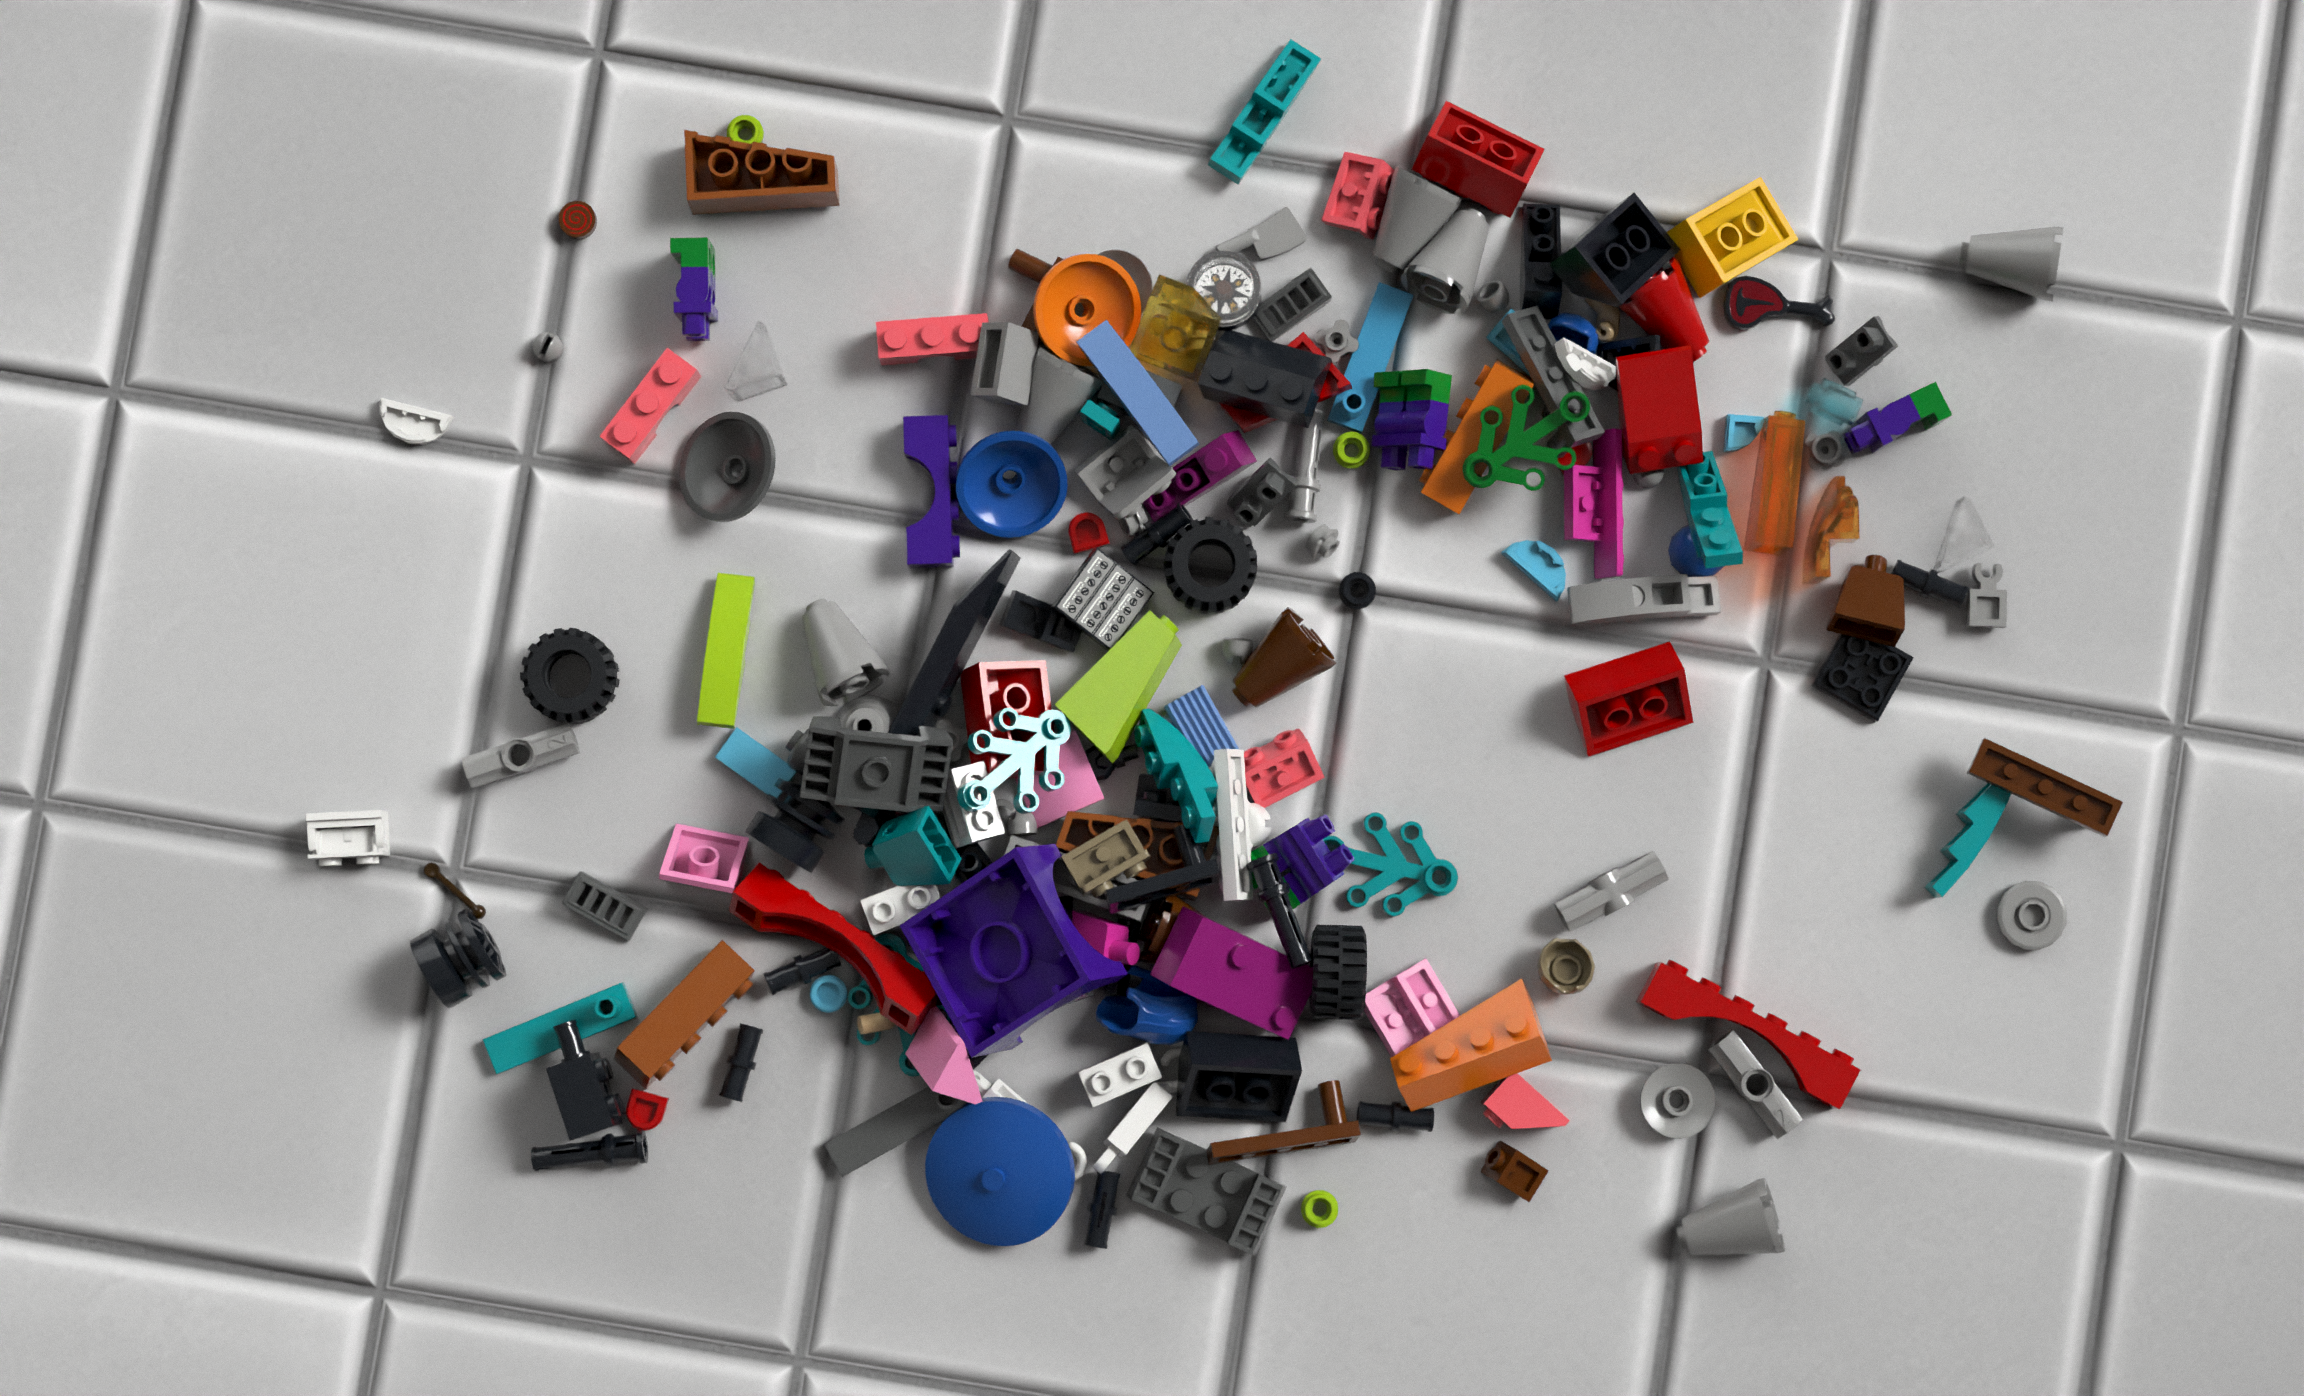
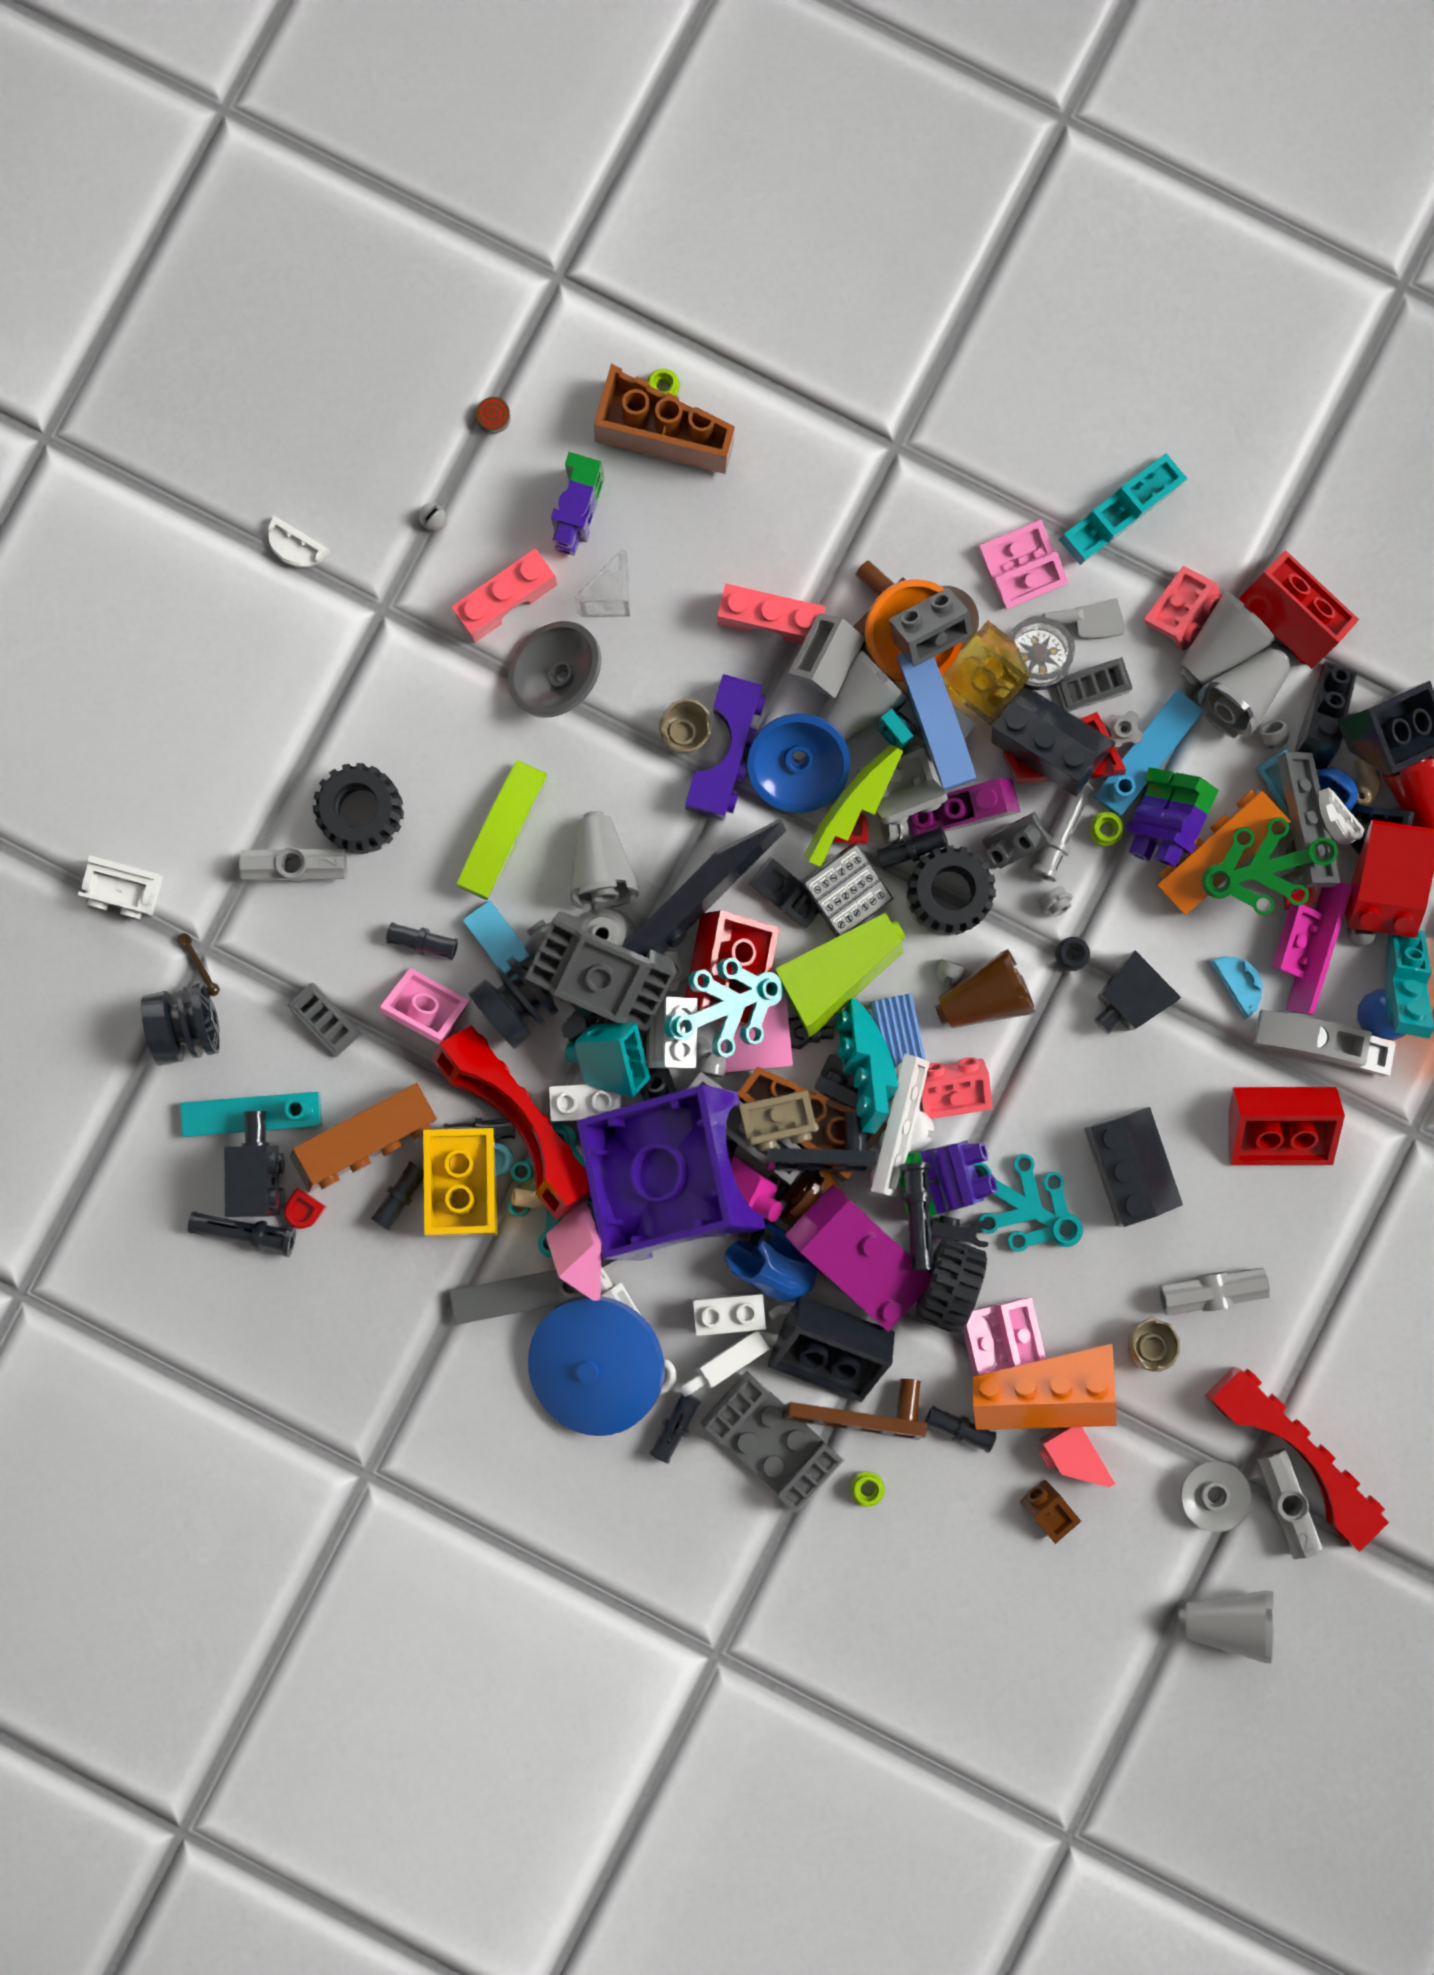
camera: 20 degrees right, 0 degrees up
(680, 792) = (422, 941): none -> black pin
(800, 1029) = (460, 1183): none -> yellow slope
(881, 482) = (685, 726): none -> dark tan hair
(1086, 495) = (861, 794): none -> lime slope
(1102, 302) = (931, 627): none -> dark grey brick
(1178, 202) = (1022, 564): none -> bright pink slope
(1320, 914) = (949, 1228): none -> black plate
(1433, 613) = (1133, 995): none -> black torso
(1489, 790) = (1133, 1167): none -> black slope

